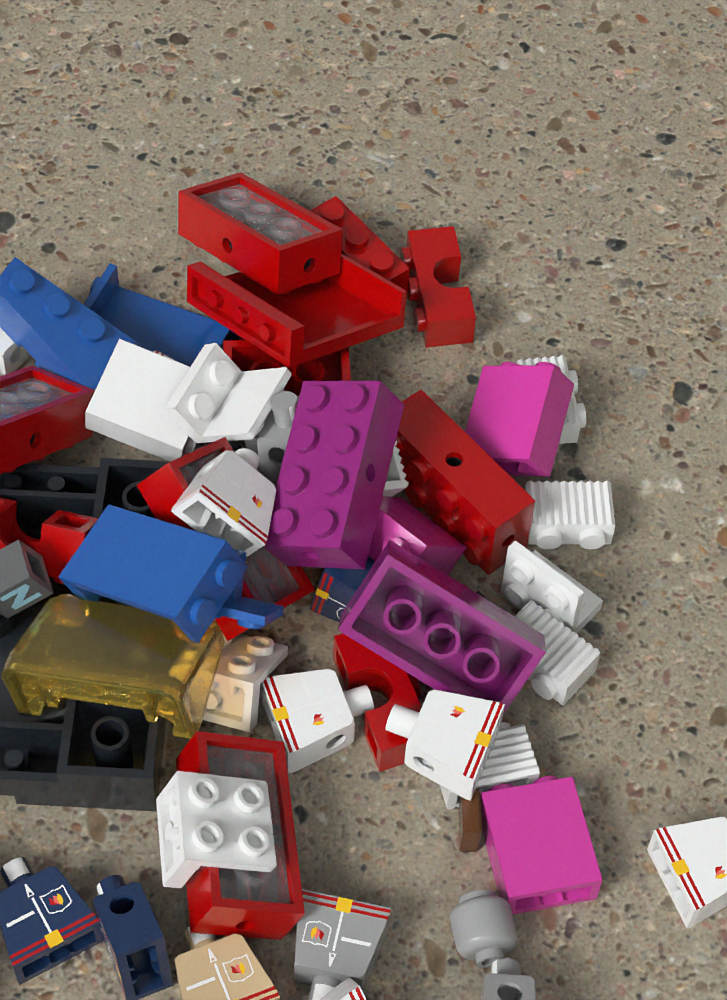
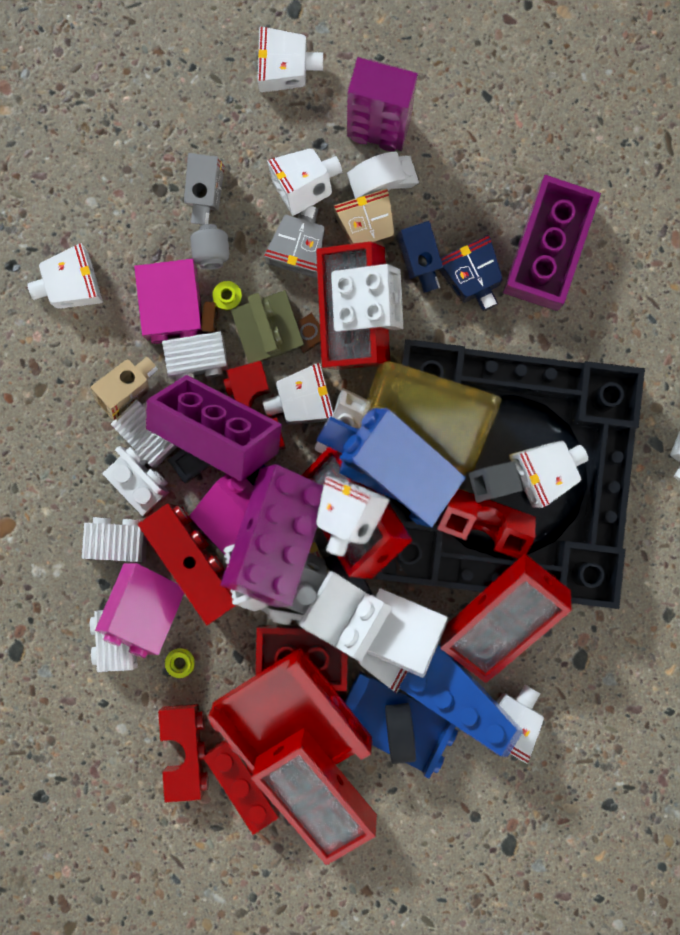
camera: 170 degrees left, 30 degrees up
(149, 305) = (400, 733): none -> black tyre
(314, 818) = (310, 332): none -> reddish brown tile
(375, 816) = (267, 326): none -> olive bracket
(444, 875) = (231, 303): none -> neon yellow plate
(449, 738) = (216, 356): white torso -> none
(456, 375) = (171, 667): none -> neon yellow plate
(590, 704) = (115, 395): none -> tan torso

